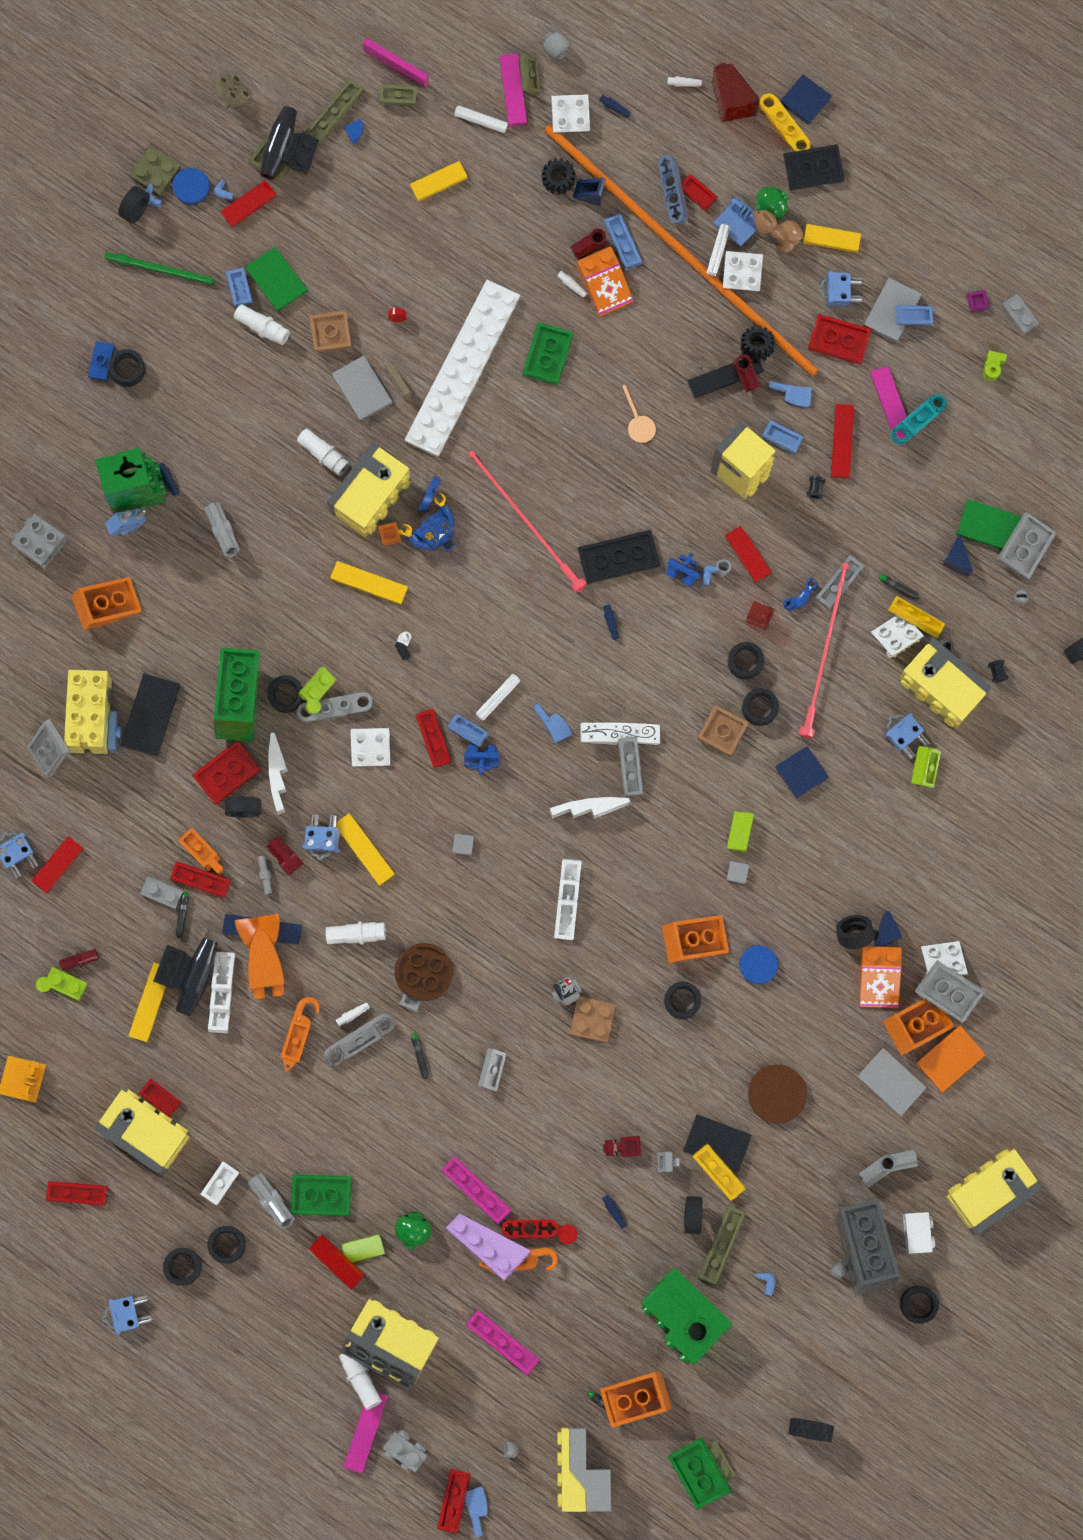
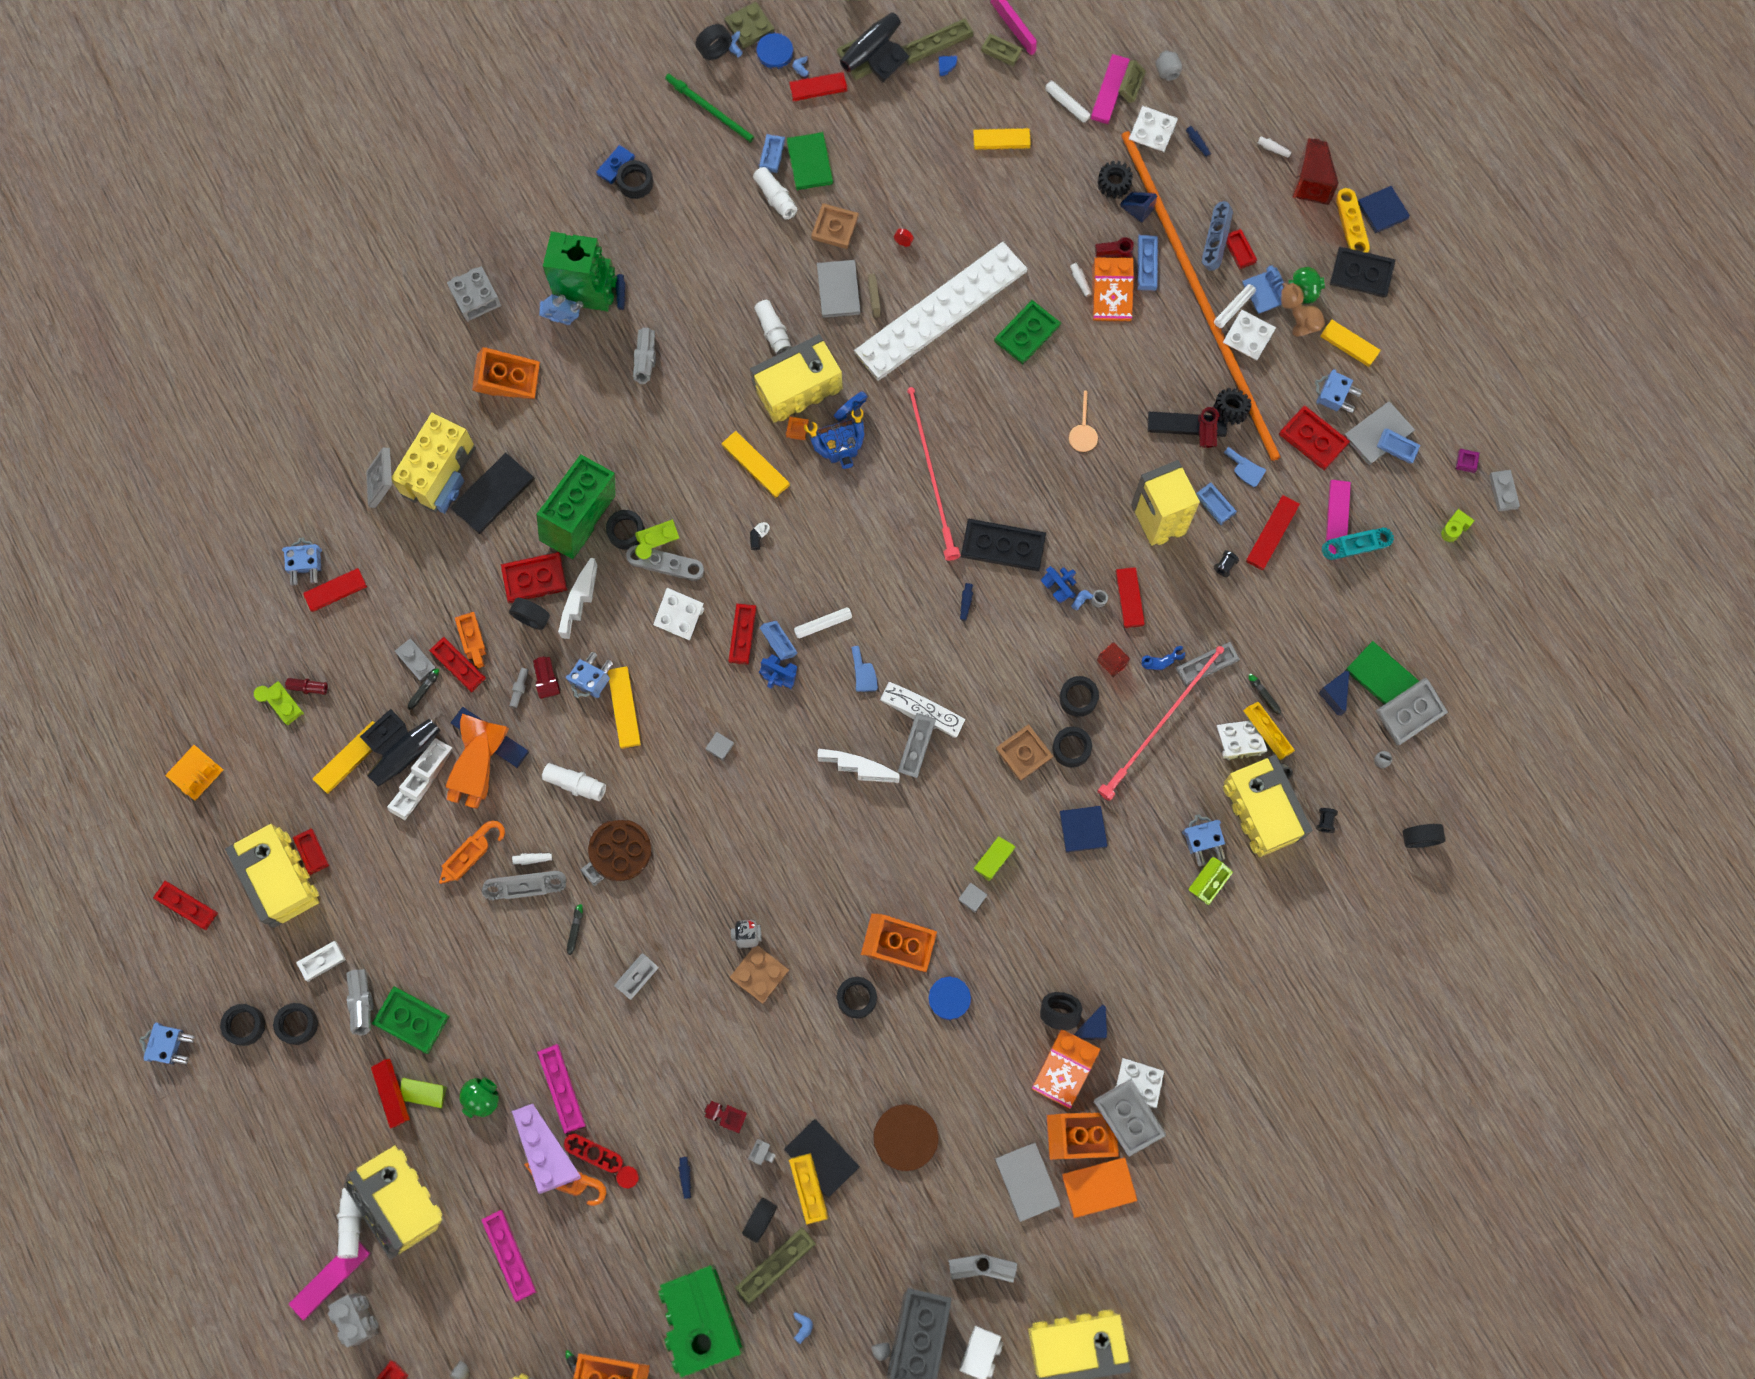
camera: 30 degrees right, 5 degrees down
(567, 899) = (793, 845): white slope -> none

